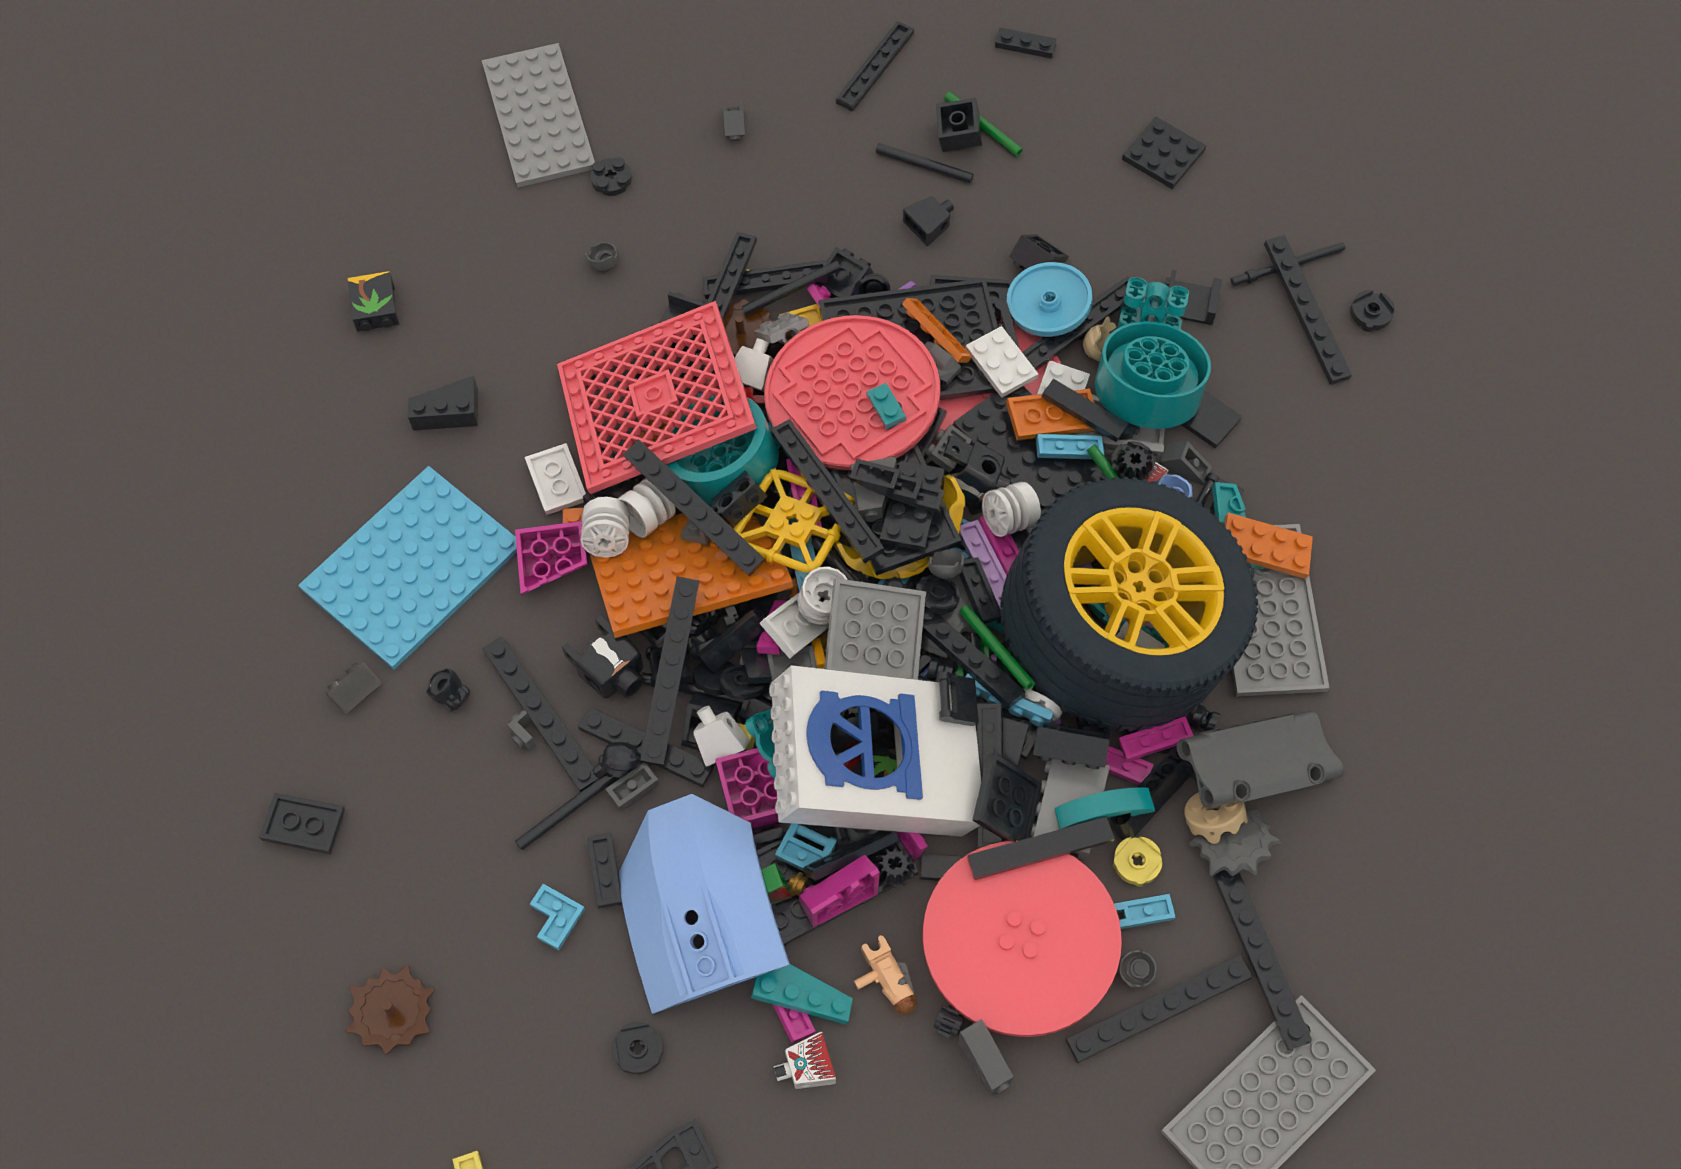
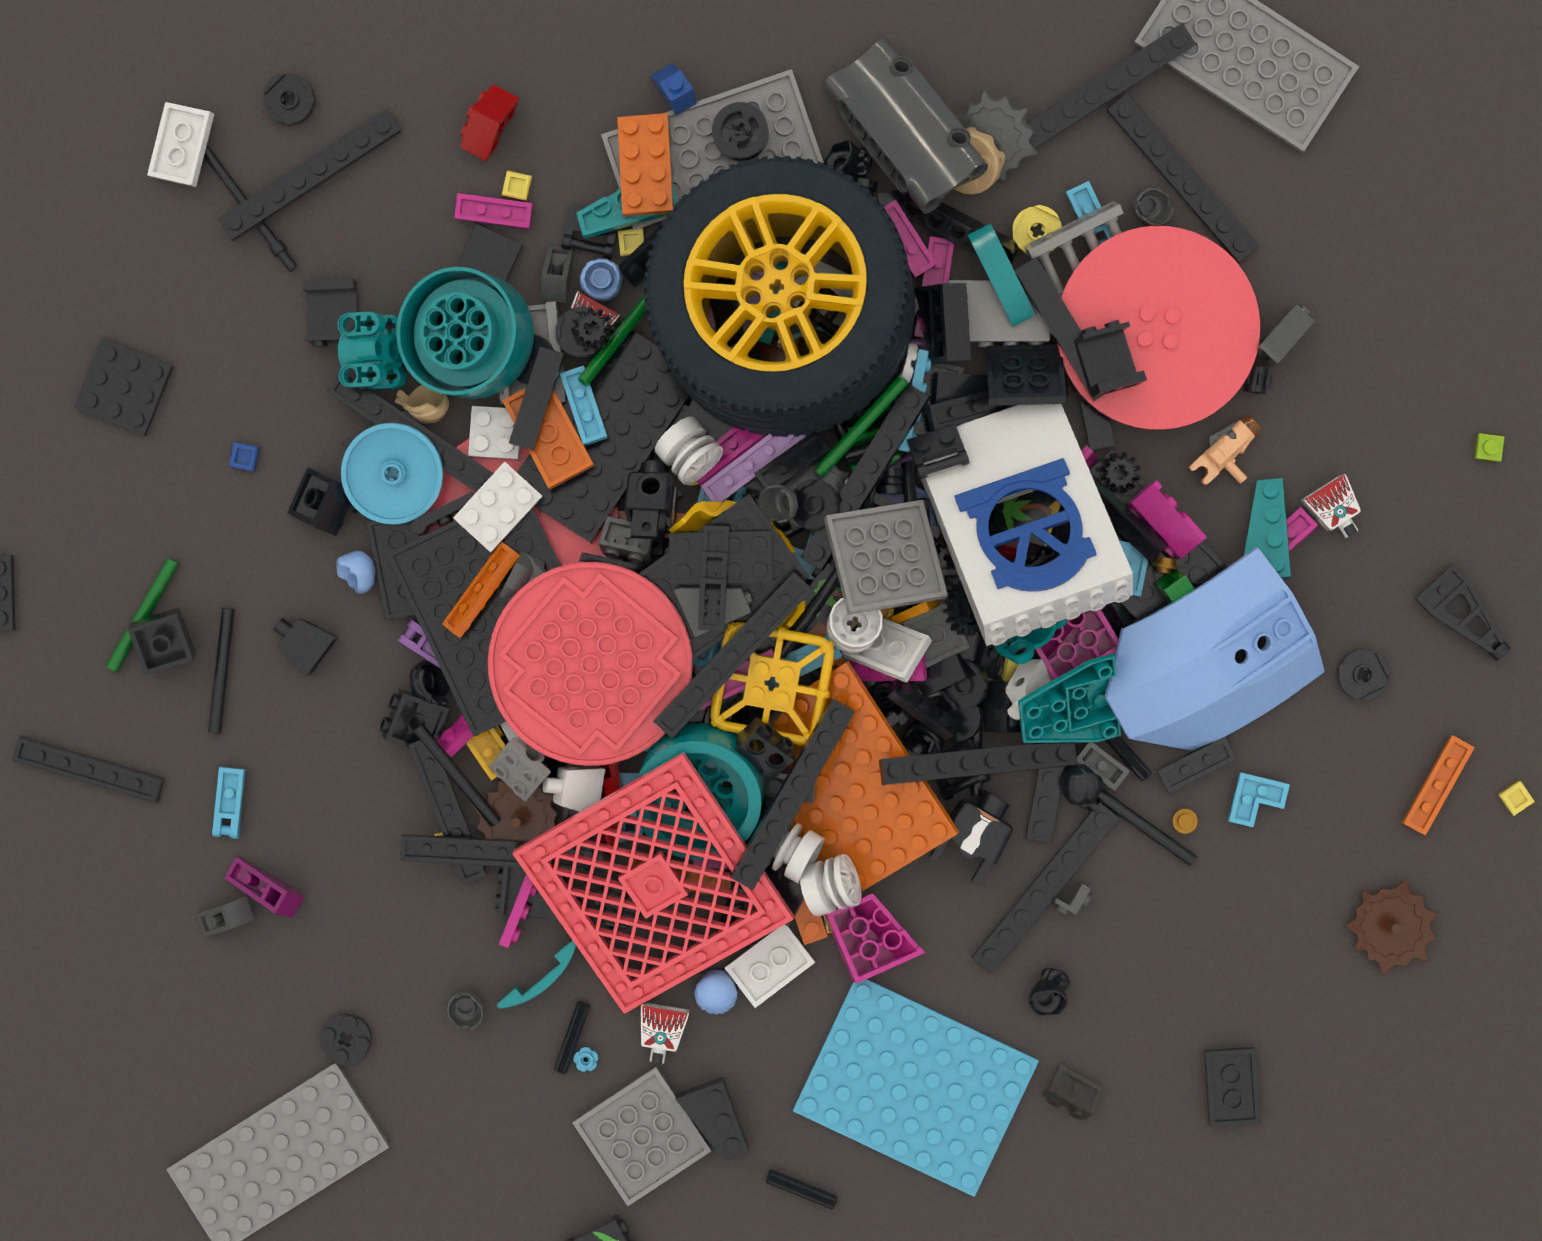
camera: 105 degrees left, 25 degrees up
(361, 457) = (801, 1189): none -> black axle
(453, 350) = (641, 1136): none -> light grey plate
(508, 1091) = (1438, 785): none -> orange plate
(531, 335) = (592, 1059): none -> medium azure plate
(534, 387) = (661, 1029): none -> torso
(548, 432) = (716, 992): none -> light blue hair
(552, 325) = (571, 1037): none -> black axle
(557, 847) = (1184, 821): none -> pearl gold plate
(615, 331) = (517, 995): none -> teal slope
(638, 811) = (1129, 757): none -> black axle
(660, 303) = (518, 912): none -> dark pink plate
(694, 760) = (1071, 706): none -> teal wedge
(745, 149) = (264, 888): none -> magenta slope
(820, 143) = (229, 801): none -> medium azure plate
(886, 406) = (606, 618): teal plate -> none
(976, 265) = (357, 570): none -> light blue hair
(1004, 875) = (1107, 359): none -> black panel
(1088, 216) = (244, 456): none -> blue tile
(1124, 875) = (1063, 238): none -> light grey fence
(1235, 710) = (849, 159): none -> black hair
(1249, 431) = (493, 211): none -> dark pink plate
(1267, 455) = (516, 186): none -> light yellow tile
(1290, 636) = (749, 114): none -> black wheel
(1327, 587) = (674, 88): none -> blue slope
(1329, 439) = (487, 121): none -> red brick
(1349, 228) = (180, 144): none -> white plate

